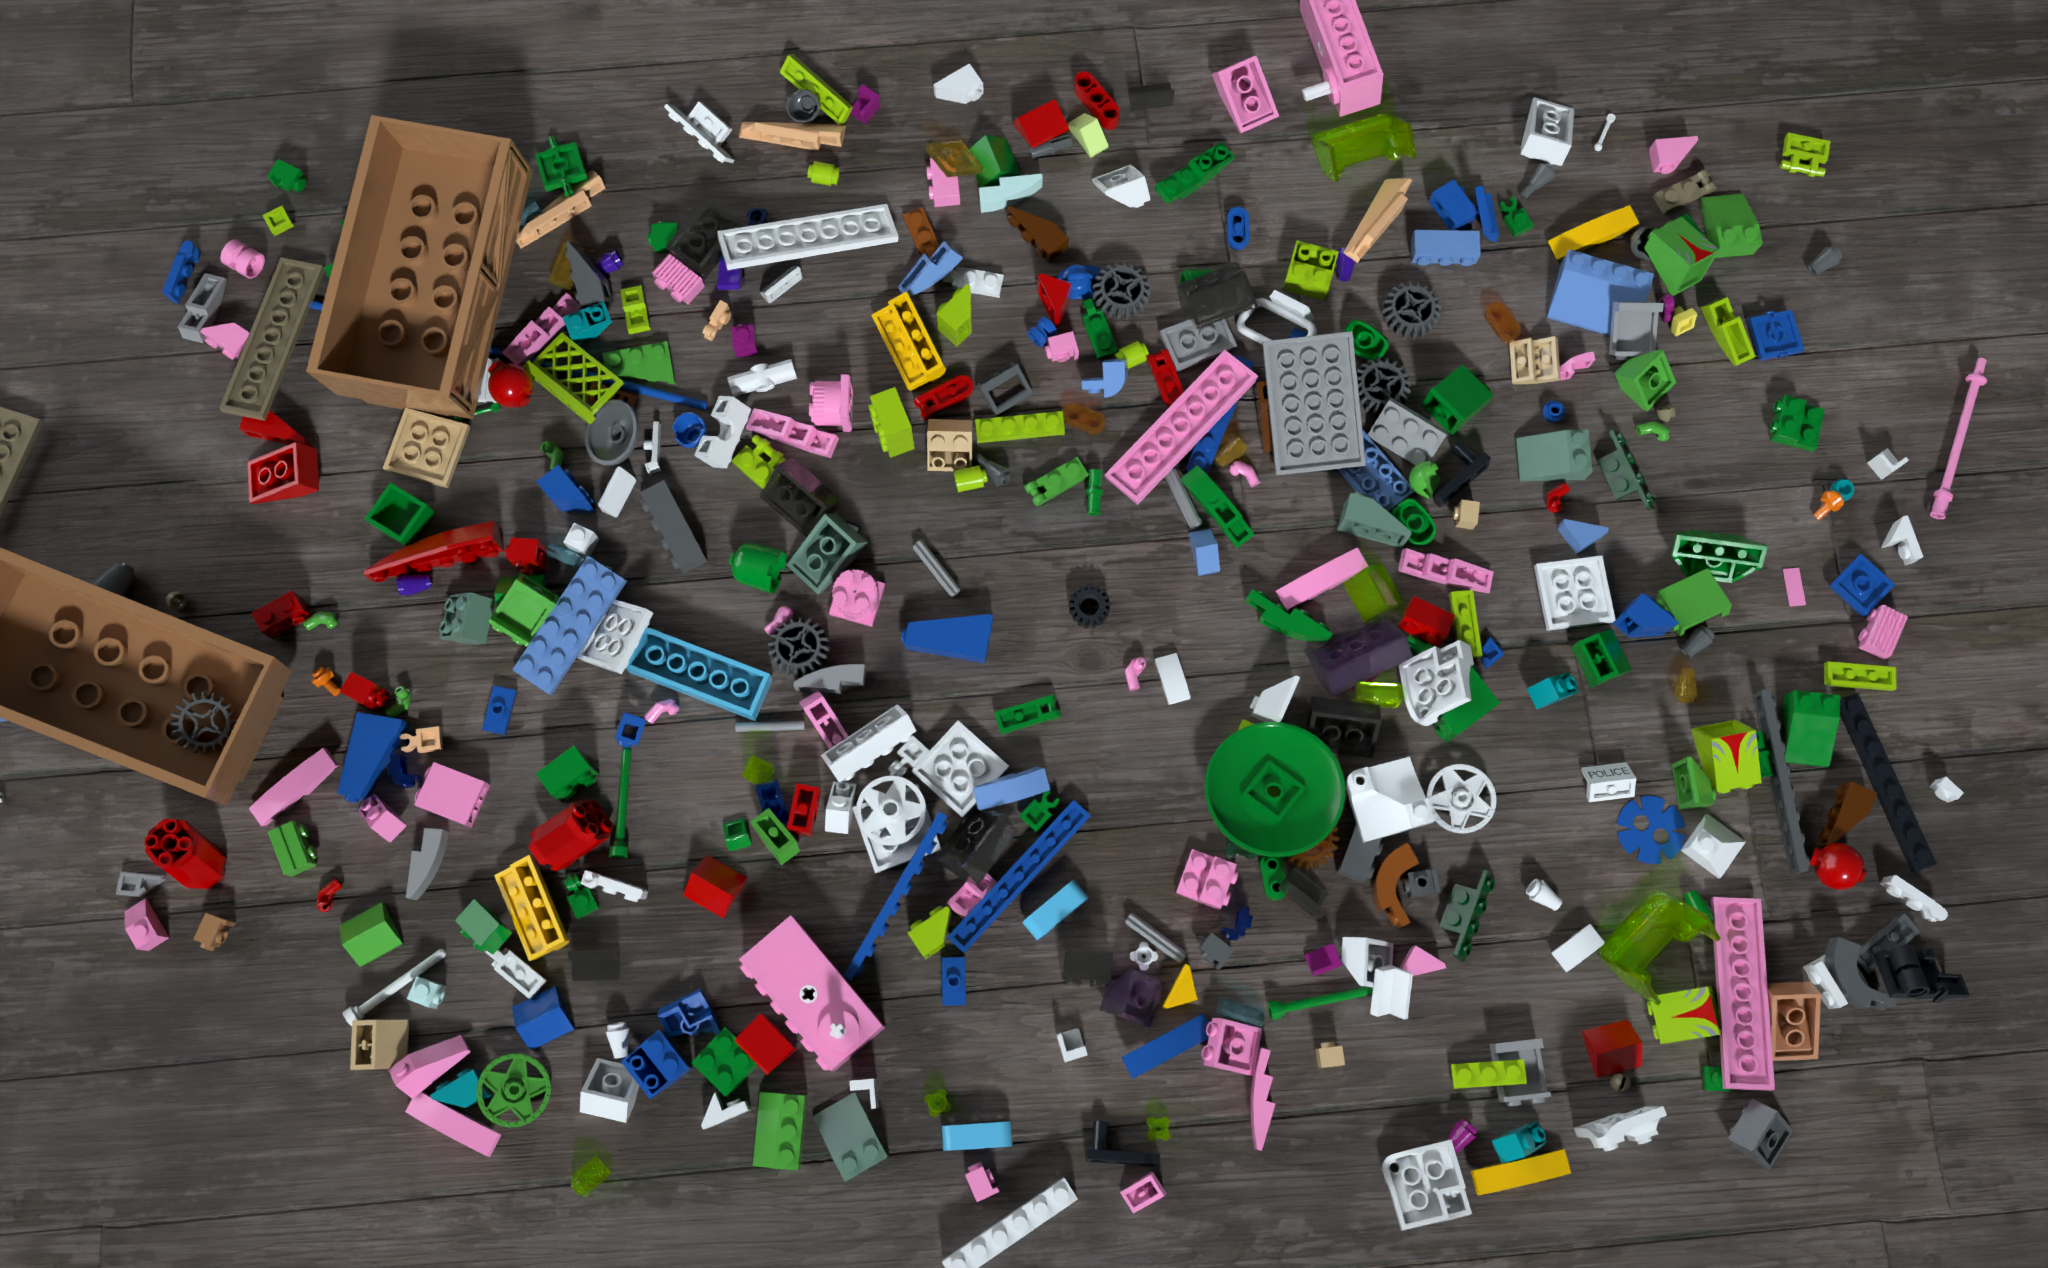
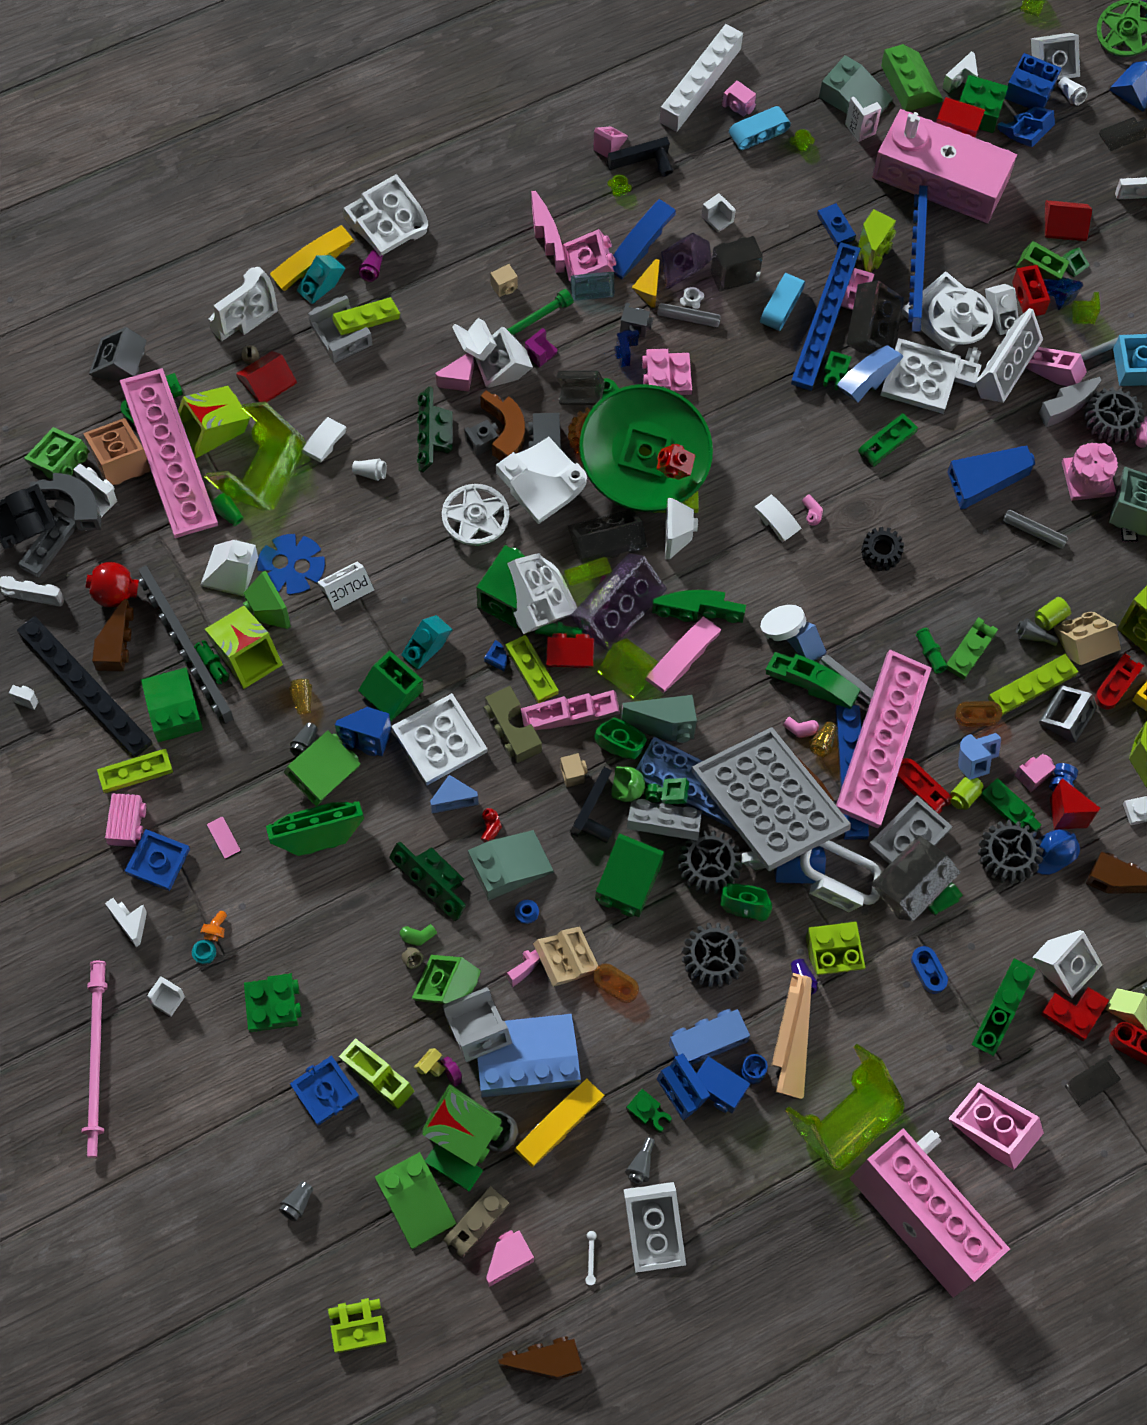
camera: 155 degrees right, 10 degrees down
(1134, 146) = (1076, 1019): none -> red plate
(1219, 569) = (783, 622): none -> white tile
(1258, 752) = (675, 461): none -> red brick
(1390, 453) = (673, 791): none -> green plate
(1422, 206) = (755, 1064): none -> blue wheel
(1504, 559) = (520, 742): none -> olive arch
(1668, 71) = (551, 1361): none -> reddish brown slope
(1852, 1040) = (57, 453): none -> bright green plate

